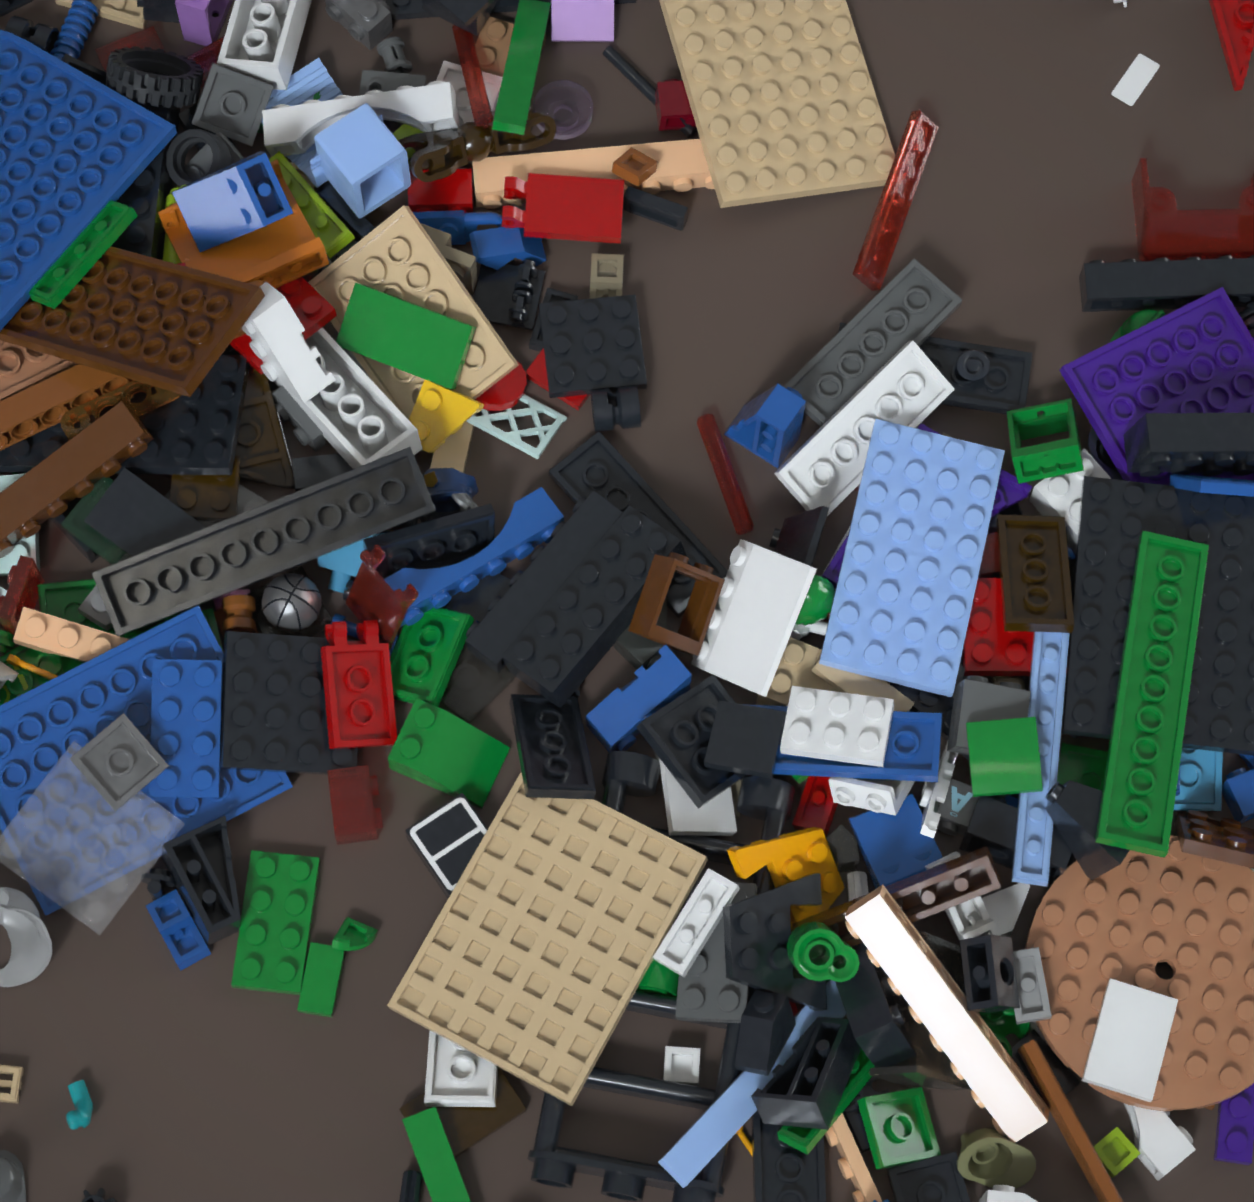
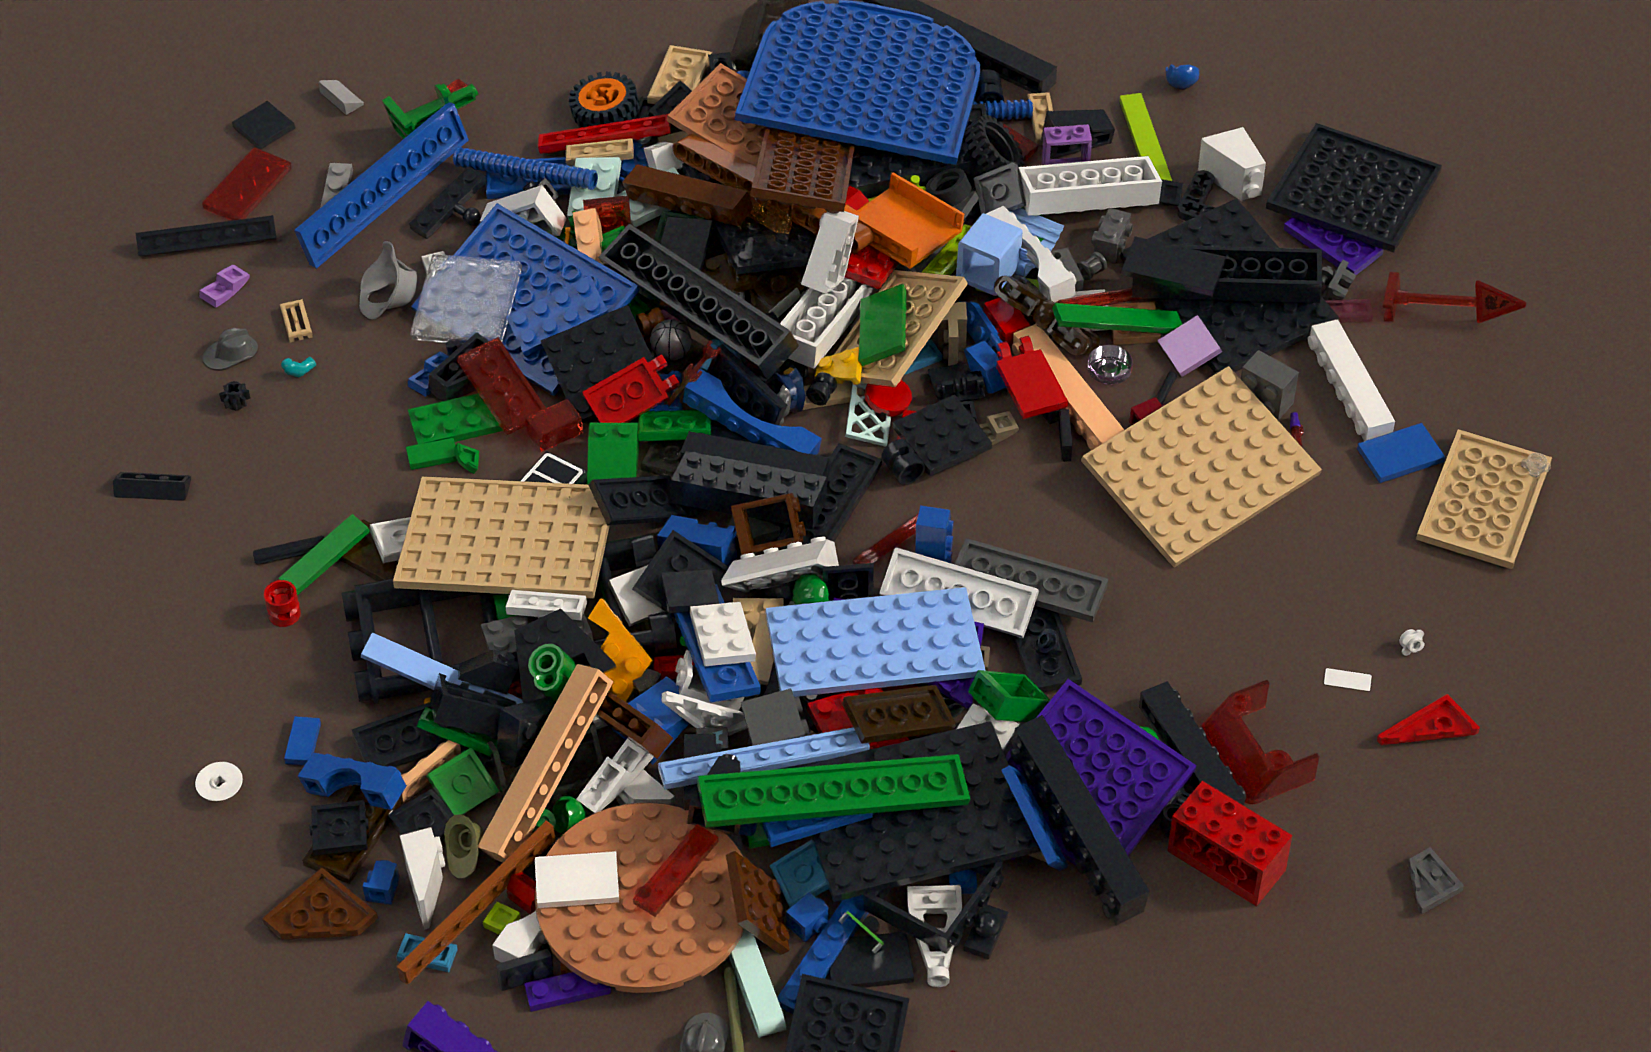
camera: 70 degrees right, 20 degrees down
(82, 254) = (840, 144): green tile -> none
(119, 762) = (514, 284): flat silver plate -> none
(232, 201) = (921, 201): slope -> none
(266, 845) = (501, 384): none -> clear red tile
(456, 452) = (822, 387): none -> black wheel
(634, 166) = (1080, 401): dark orange plate -> none
(682, 1065) = (455, 652): white plate -> none
(895, 200) = (1157, 563): clear red tile -> none
(989, 974) = (567, 772): black brick -> none
(1004, 756) = (744, 727): green slope -> none
(1031, 987) = (589, 807): light grey plate -> none
(1091, 1106) = (522, 891): none -> red piece
(1158, 920) = (675, 870): none -> clear red tile
(1205, 1134) = (524, 969): none -> black plate

